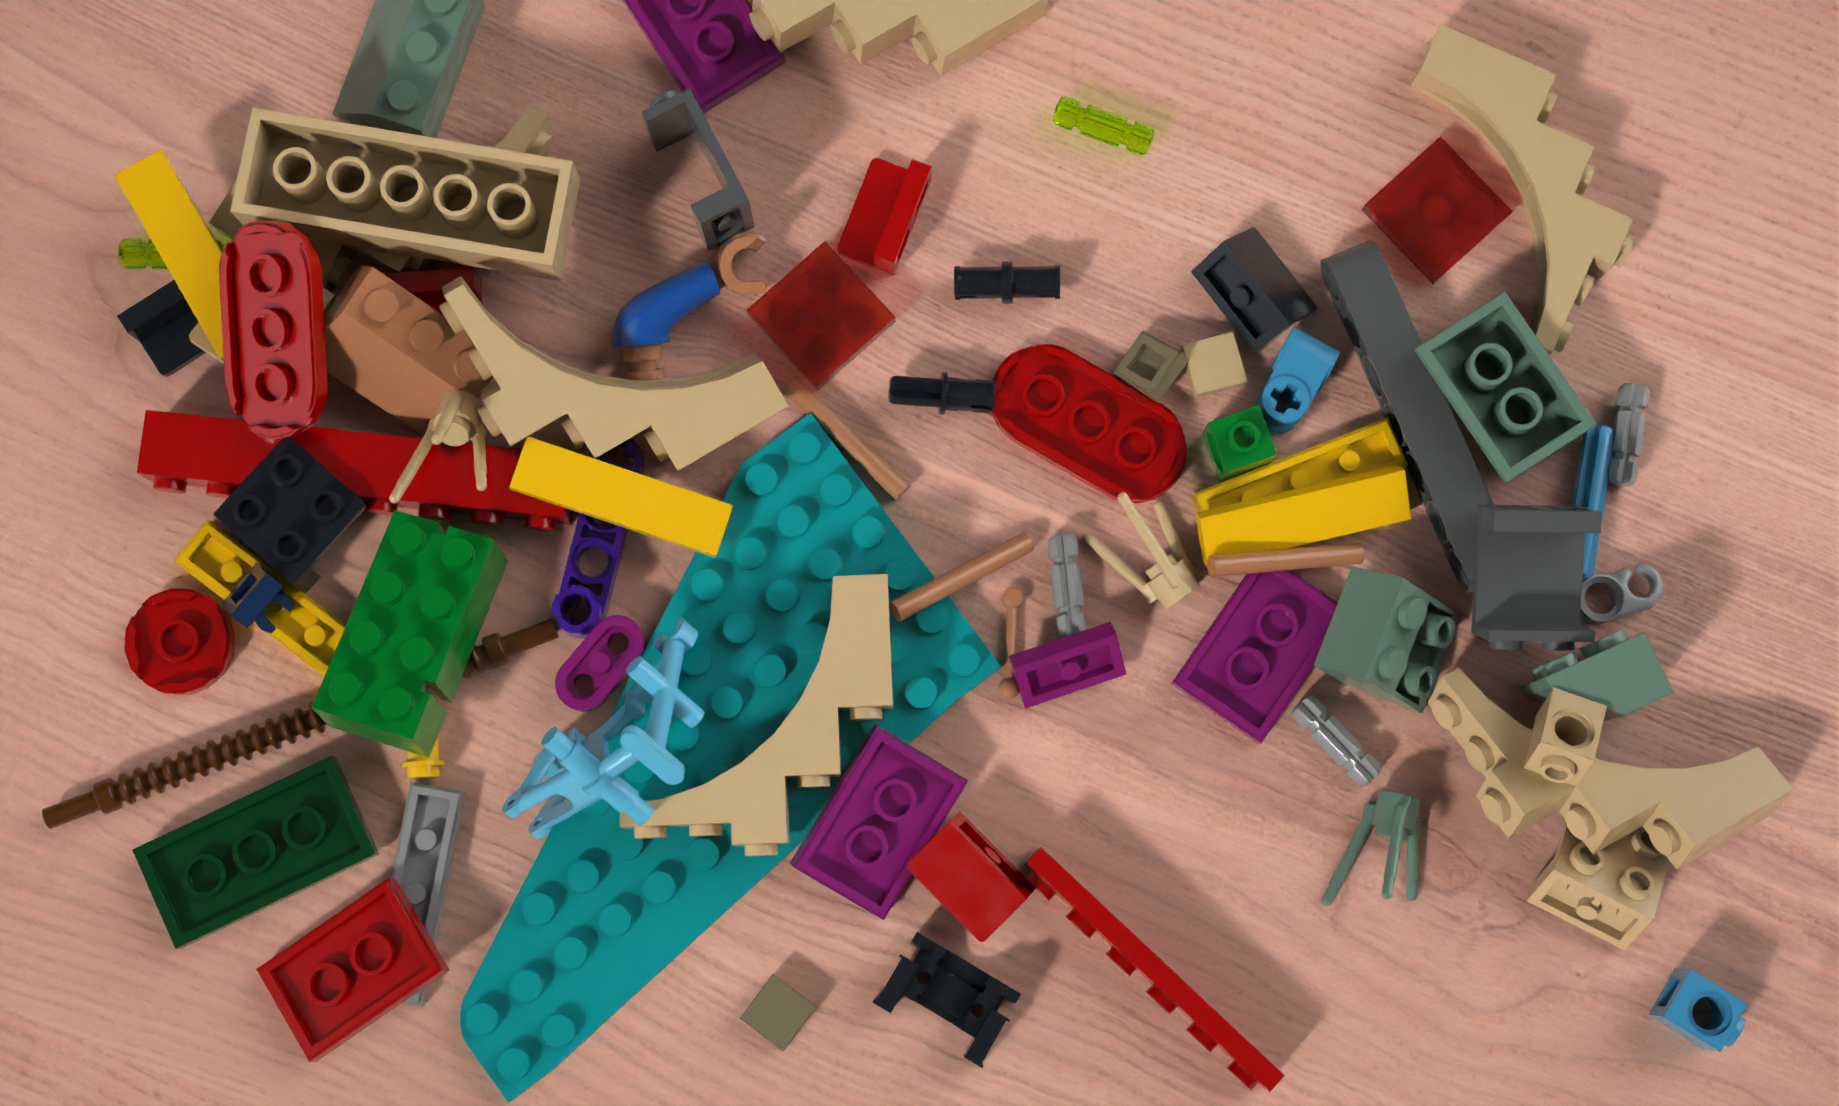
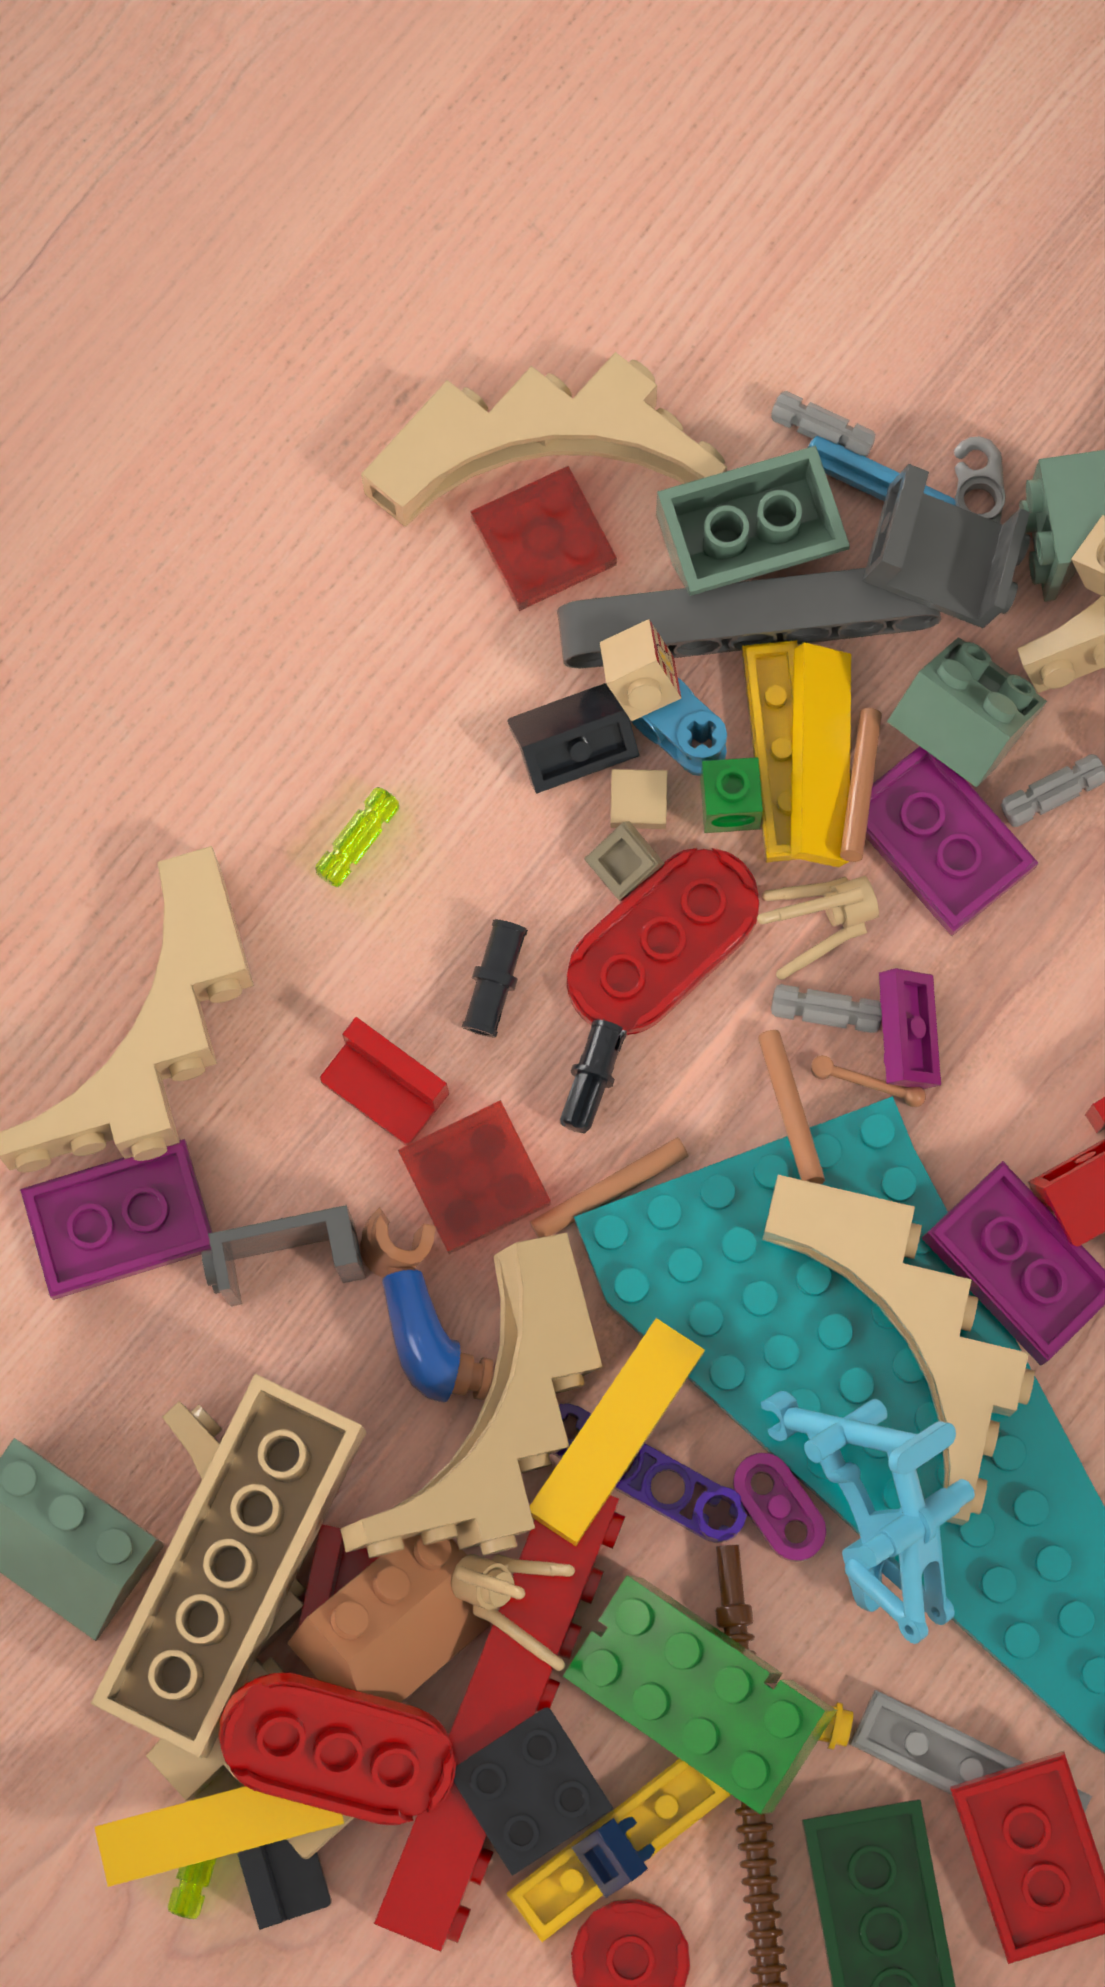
camera: 70 degrees left, 5 degrees down
(1328, 325) = (640, 670): none -> tan brick

